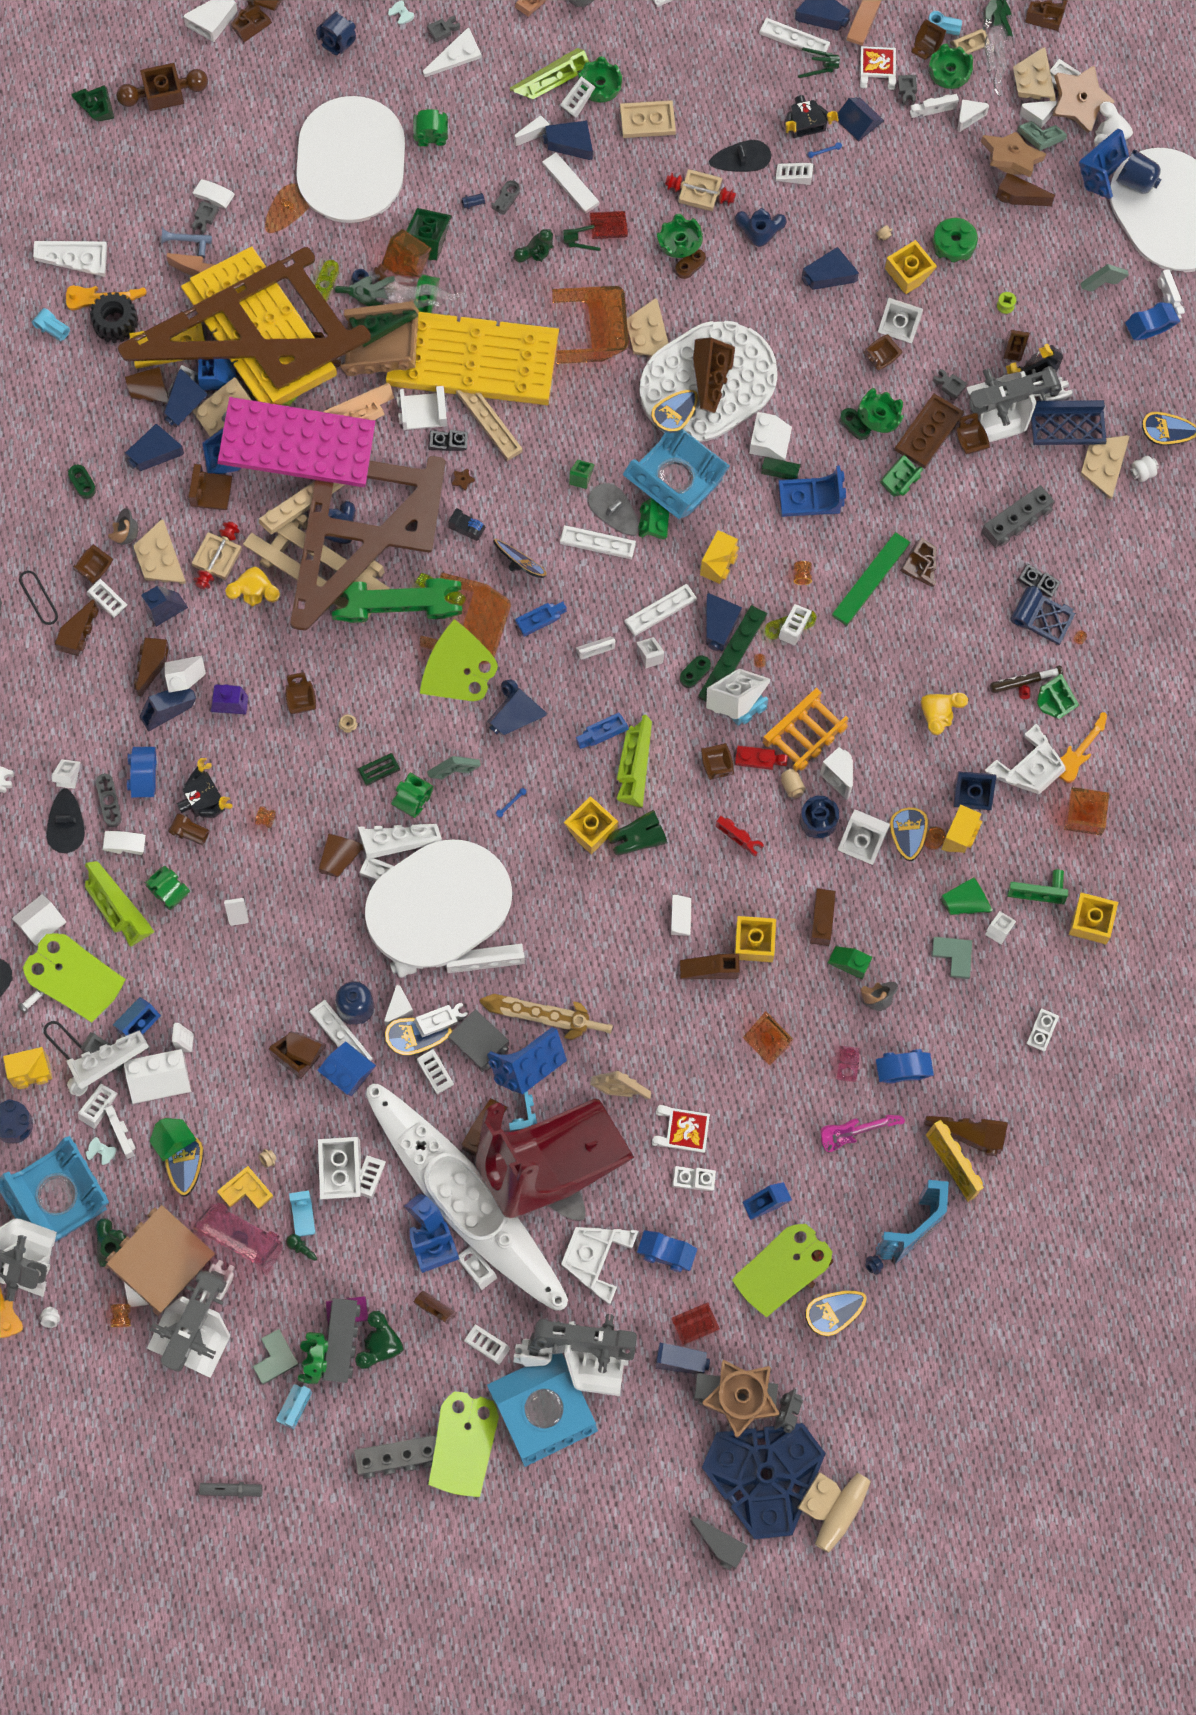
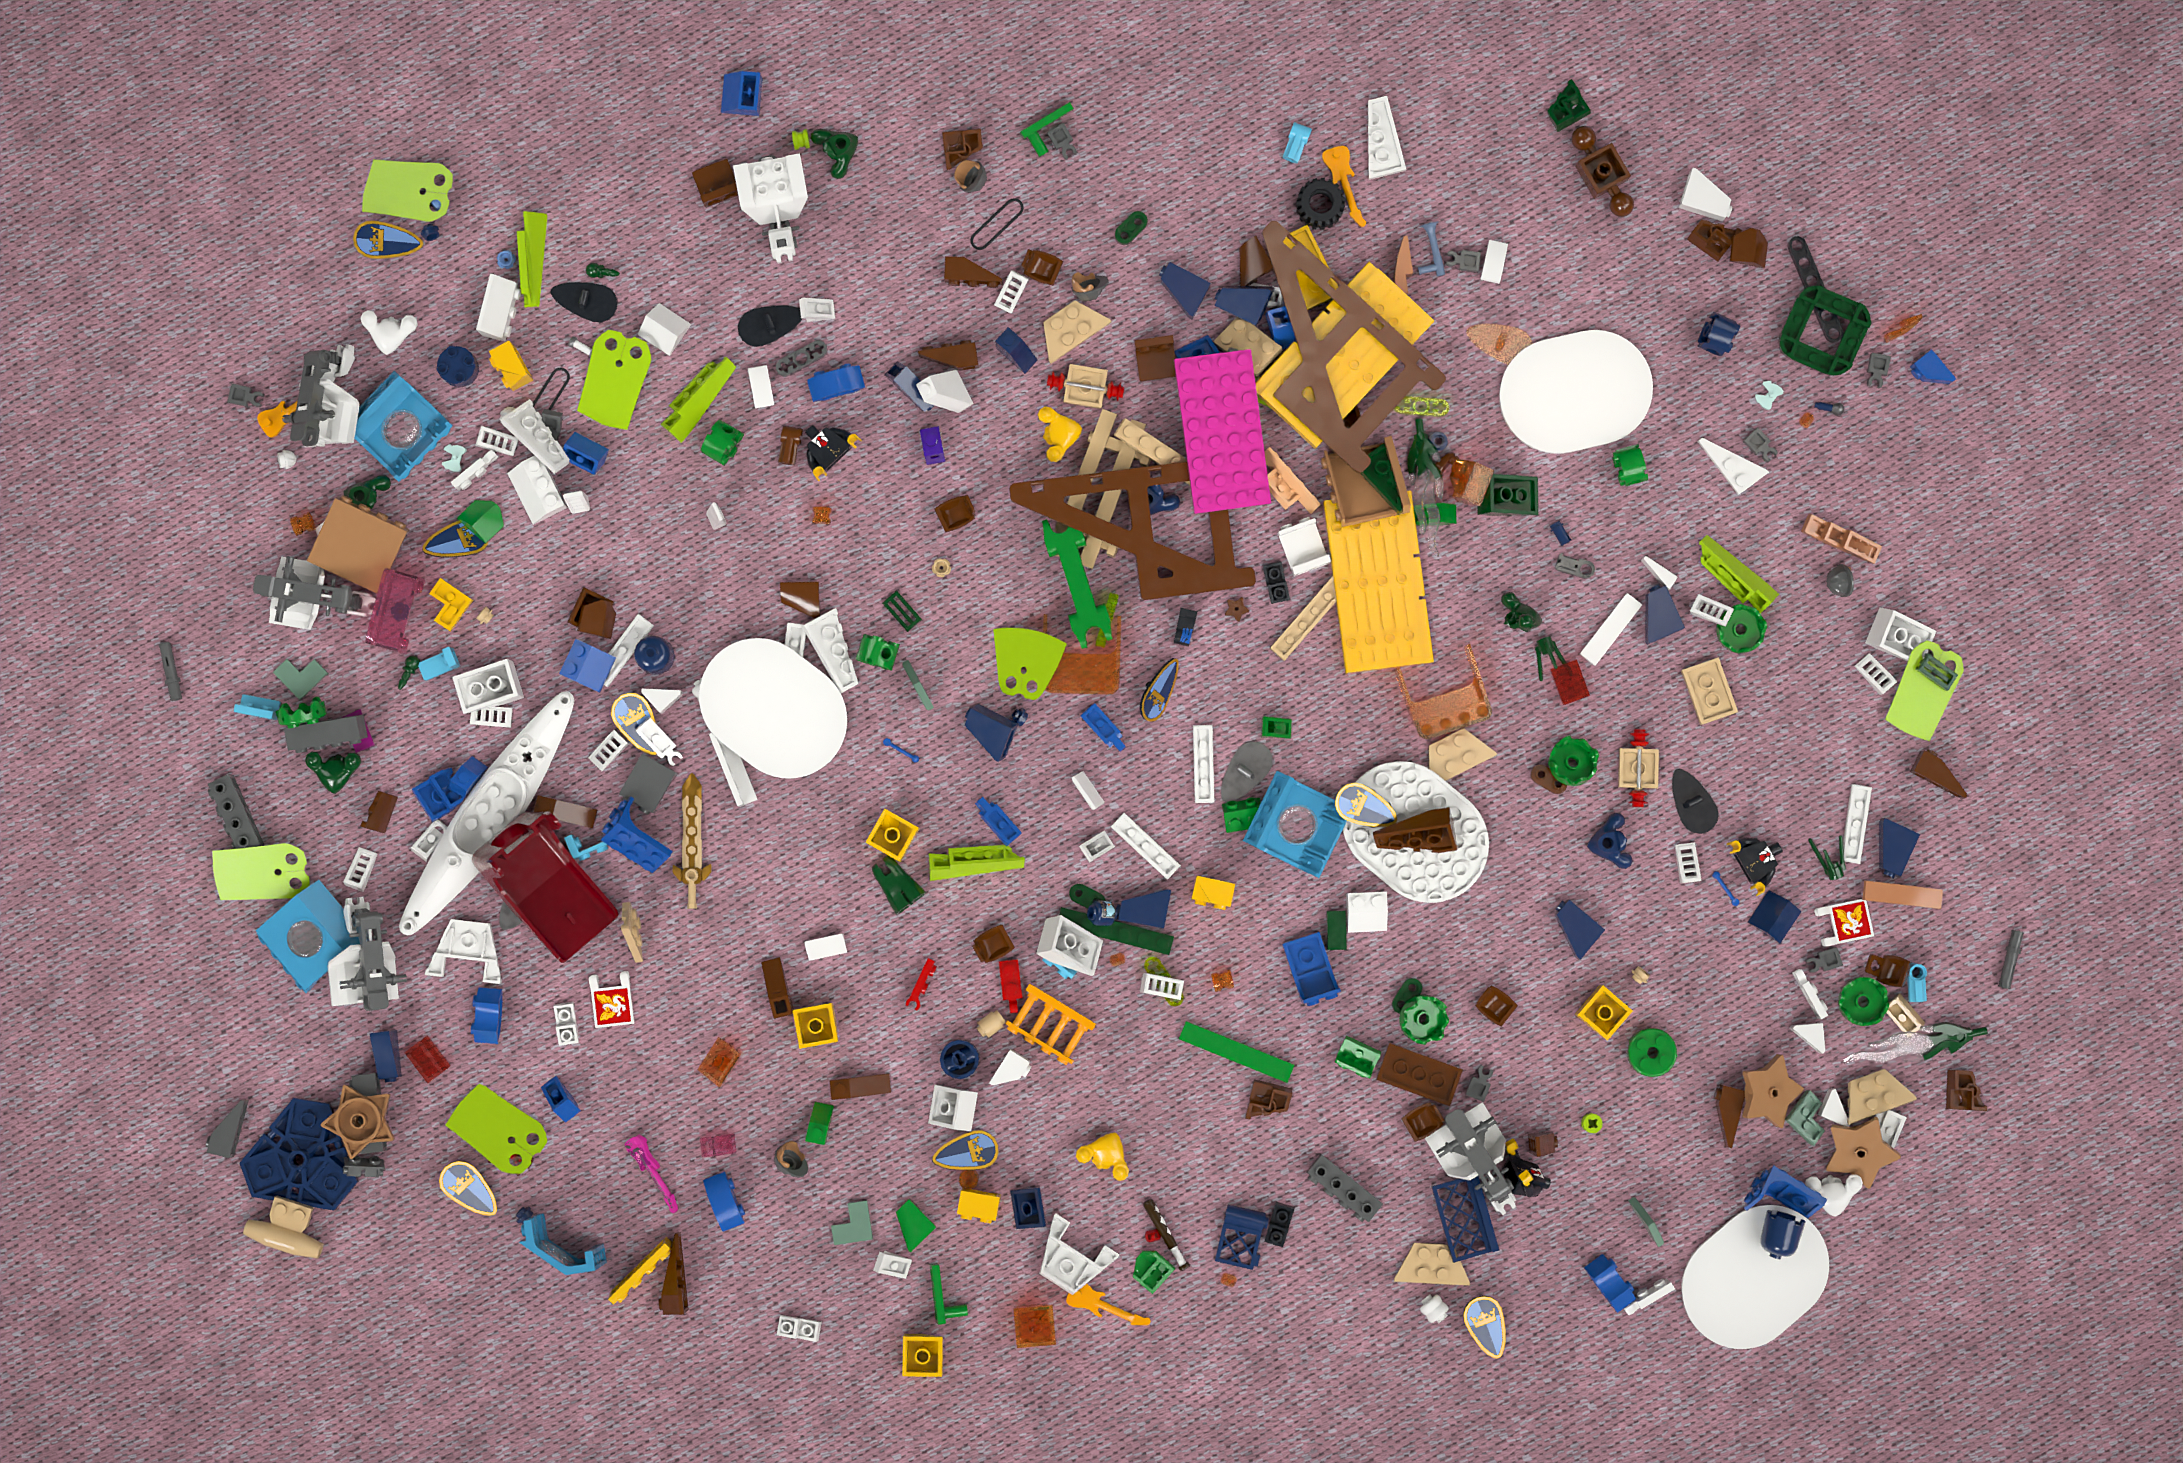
camera: 80 degrees right, 15 degrees up
(714, 657) = (1102, 913): none -> dark blue head
(900, 320) = (1537, 1015): white slope -> none

